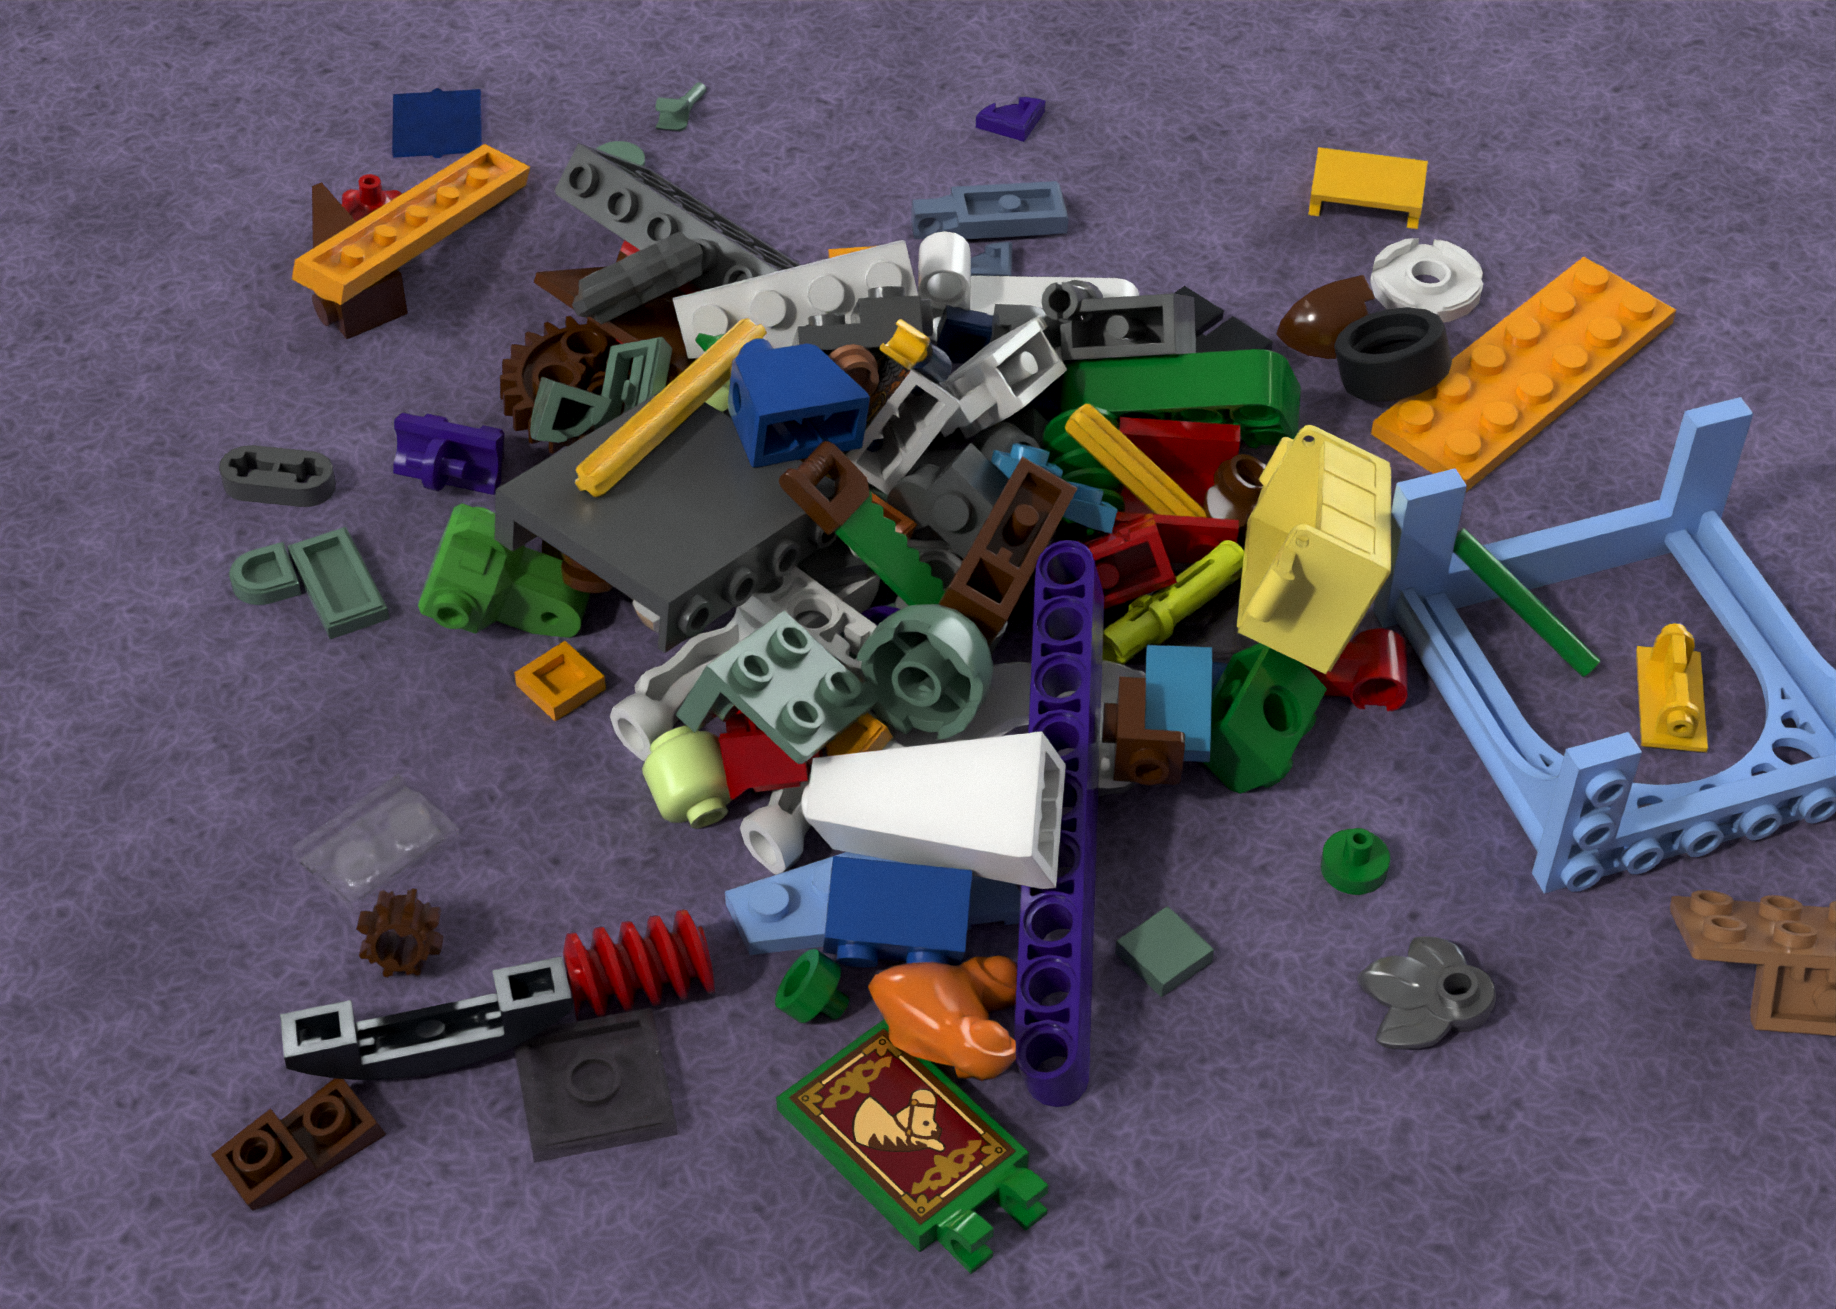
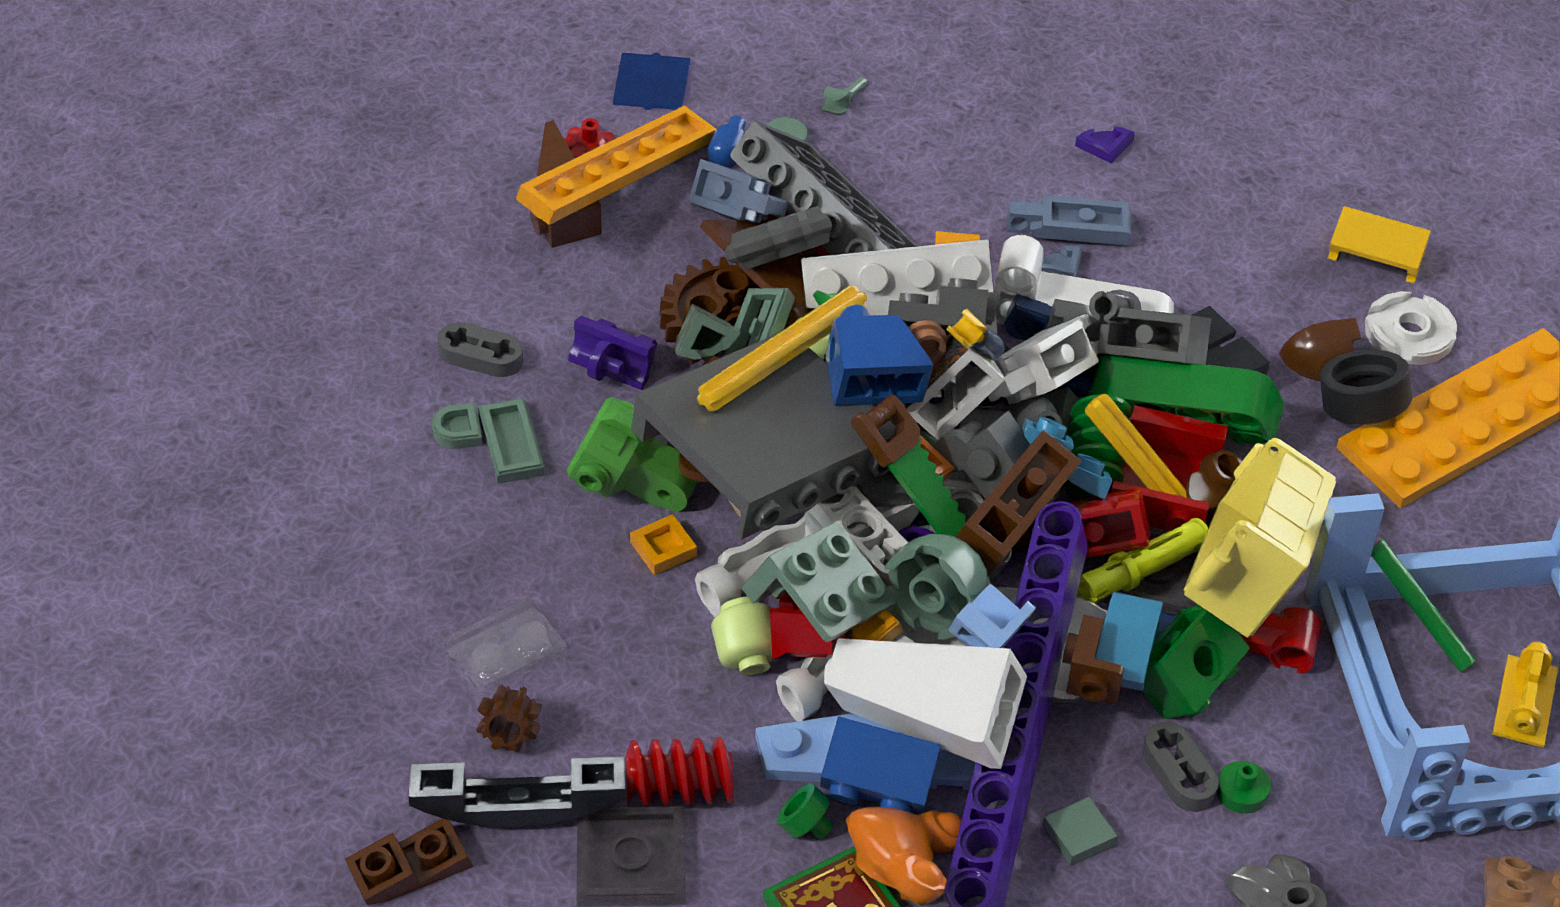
camera: 10 degrees right, 0 degrees up
(542, 181) = (725, 140): none -> blue cylinder
(568, 237) = (734, 193): none -> sand blue hinge
(1005, 701) = (990, 620): none -> light blue panel
(1265, 854) = (1187, 761): none -> dark grey beam

